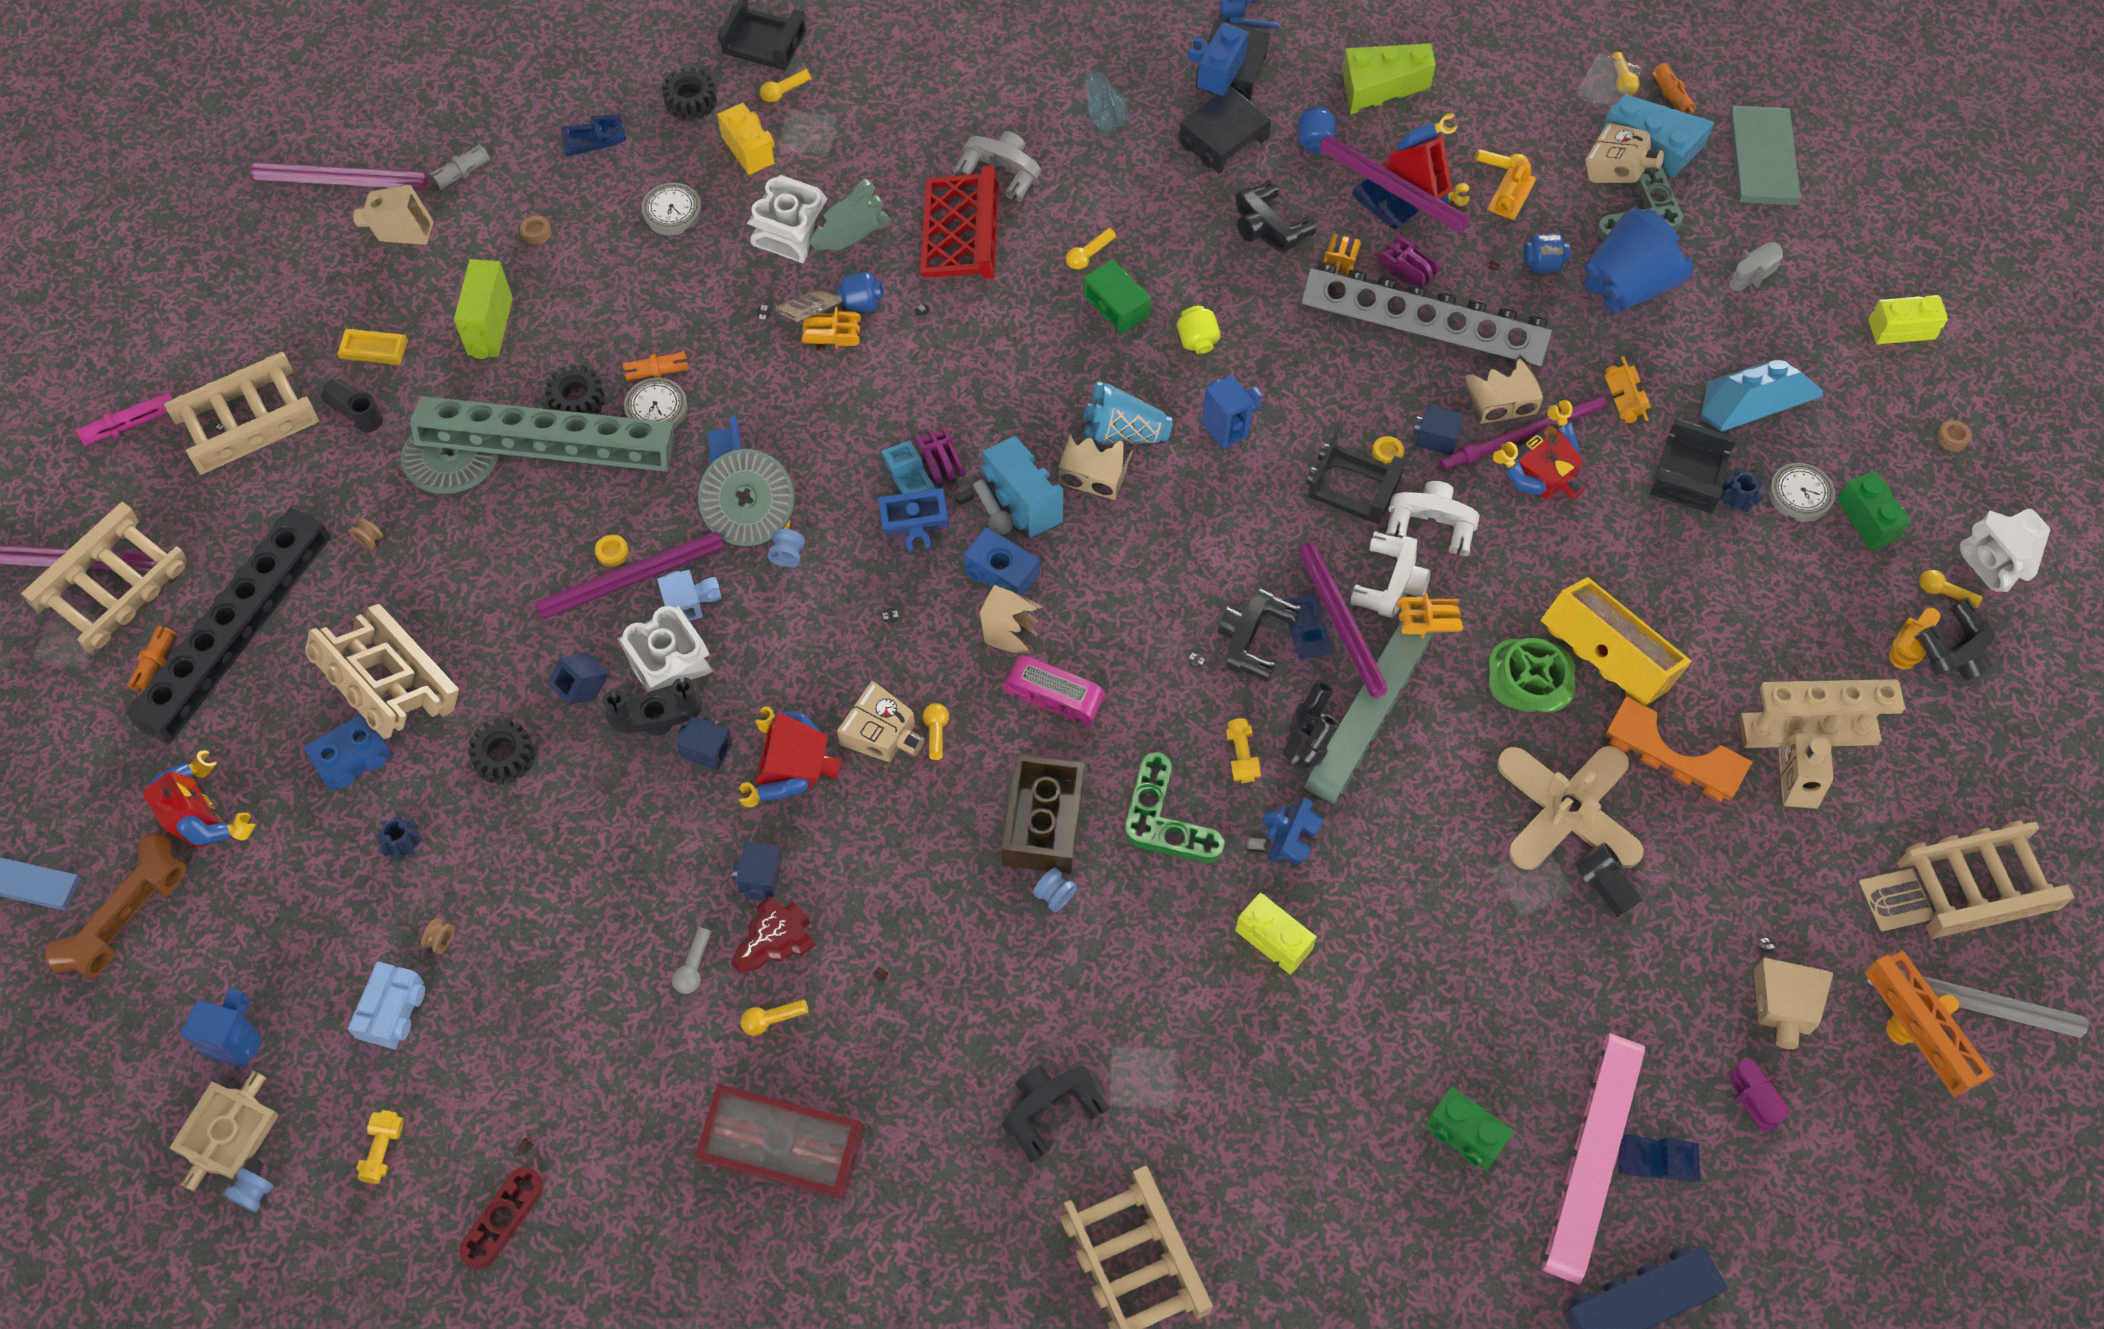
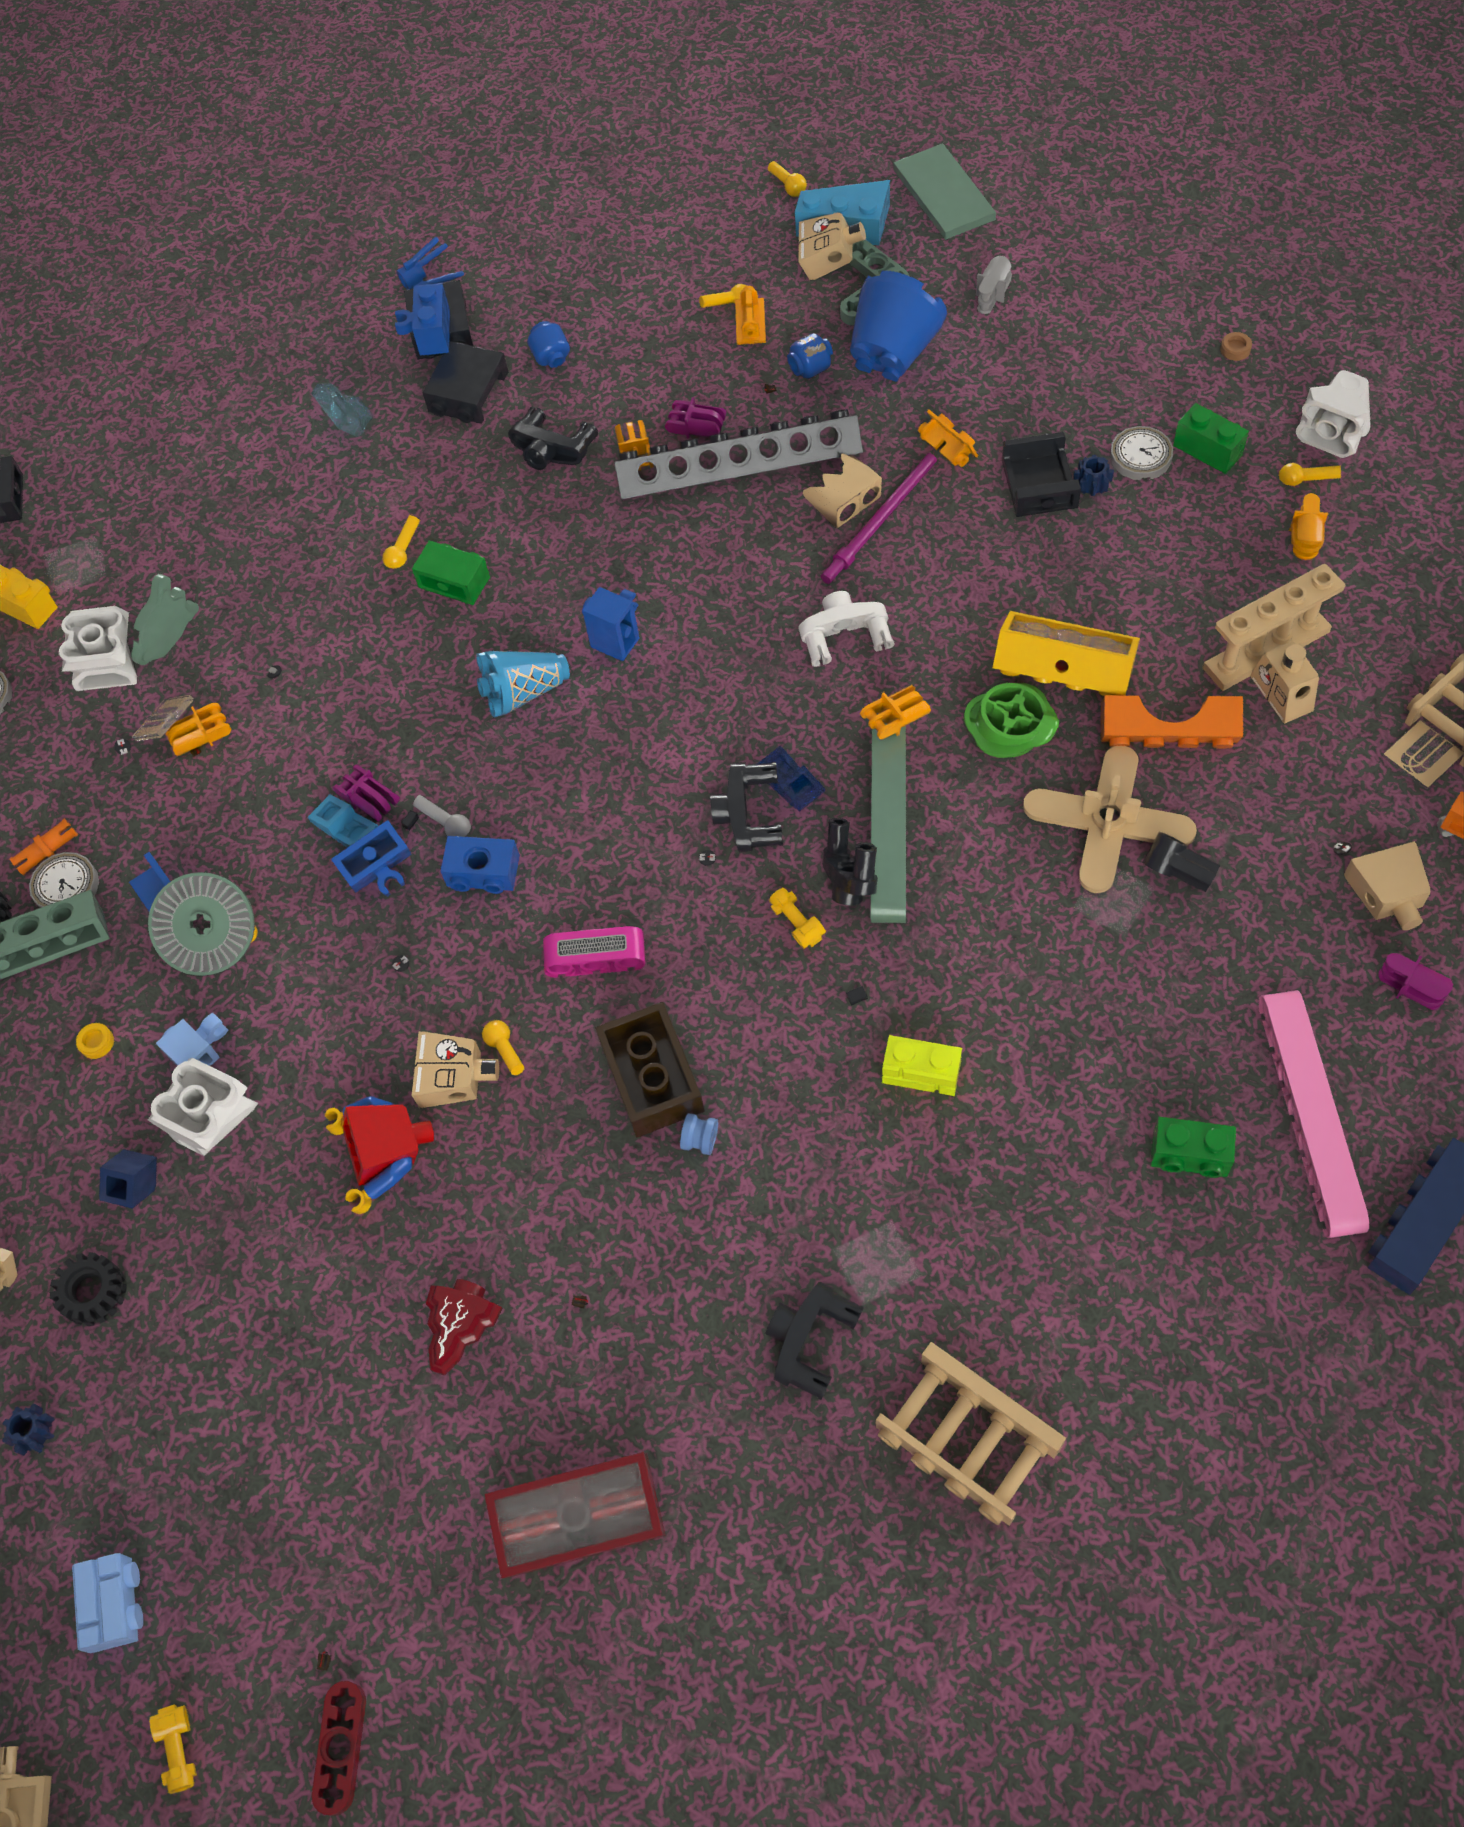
camera: 20 degrees left, 0 degrees up
(437, 936) = (121, 1504): medium nougat bush -> none
(629, 575) = (124, 1055): magenta axle -> none
(636, 713) = (204, 1183): black connector -> none
(687, 978) = (394, 1407): light grey bar -> none
(704, 742) = (286, 1174): dark blue brick -> none
(756, 1020) = (485, 1411): yellow bar -> none
(758, 870) = (407, 1267): dark blue brick -> none
(773, 91) = (21, 542): yellow bar -> none
(786, 548) = (266, 951): medium blue wheel -> none
(860, 292) = (207, 683): blue head -> none
(985, 230) = (293, 571): red fence -> none
(1004, 613) = (509, 905): tan piece -> none
(1005, 153) = (273, 496): light grey connector -> none
(1022, 487) = (460, 783): dark azure wedge -> none
(1100, 466) = (523, 729): tan piece -> none
(1159, 826) = (760, 1025): beam -> none
(1198, 329) = (541, 566): neon yellow head -> none
(1285, 828) = (876, 966): blue hips -> none
(1336, 456) = (728, 617): black panel -> none
(1343, 620) = (820, 756): magenta axle -> none
(1384, 204) = (650, 381): clear blue slope -> none
(1386, 73) = (581, 268): lime wedge -> none
(1386, 448) = (771, 591): yellow tile -> none
(1395, 184) = (644, 357): magenta axle -> none
(1405, 578) = (853, 691): white connector -> none
(1424, 162) = (661, 332): red torso -> none
(1438, 429) = (805, 549): dark blue brick -> none
(1547, 460) = (915, 528): torso -> none
(1603, 81) = (774, 193): clear piece -> none
(1659, 1158) = (1367, 1082): clear blue slope -> none
(1673, 89) = (835, 170): orange pin -> none
(1755, 394) = (1056, 388): dark azure wedge -> none
(1907, 319) = (1143, 268): neon yellow brick -> none
(1968, 653) = (1357, 514): black connector -> none

